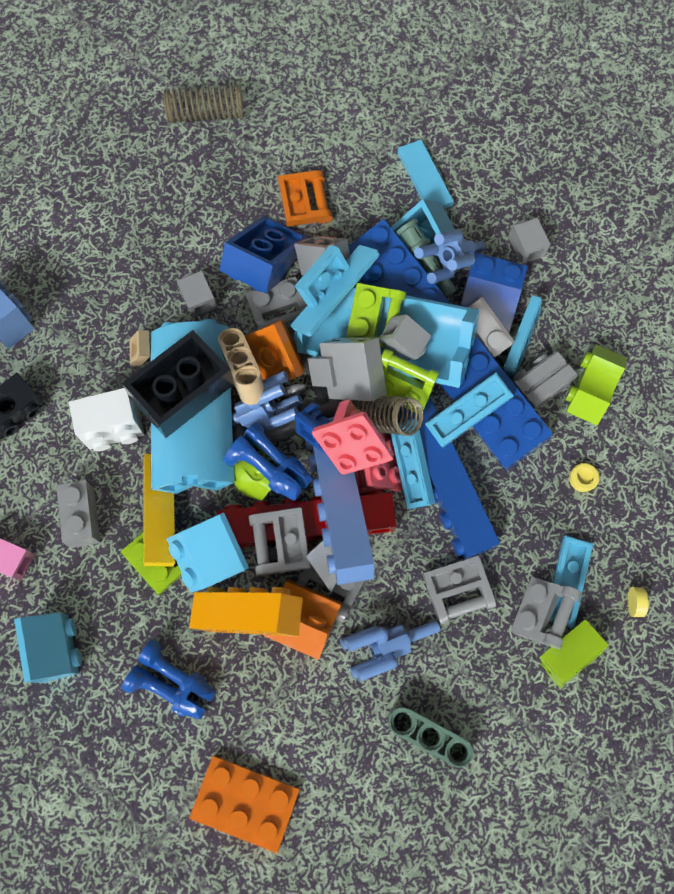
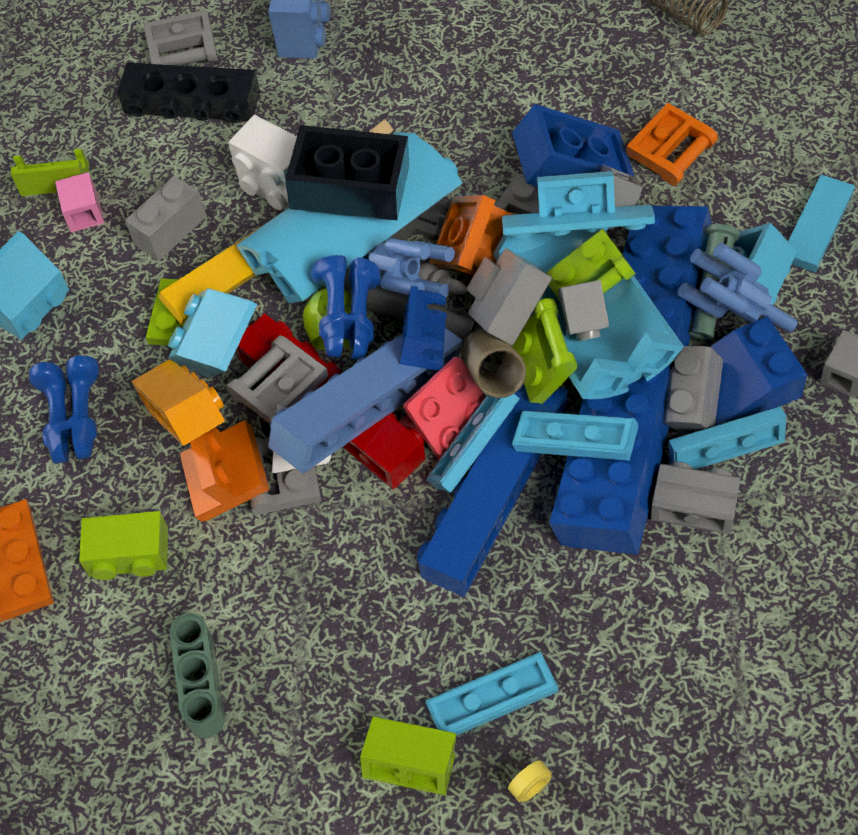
camera: 60 degrees right, 15 degrees down
(196, 294) = (472, 139): light grey brick -> none
(242, 365) = (419, 208): tan beam -> none
(302, 718) = (124, 545): none -> lime brick
(352, 440) = (423, 338): coral bracket -> none
(385, 646) = (257, 562): medium blue plant -> none
(455, 580) = (389, 580): light grey plate -> none
(537, 611) = (428, 687): light grey plate -> none
(584, 477) = (629, 625): light yellow tile -> none
(596, 384) = (765, 543): lime brick -> none

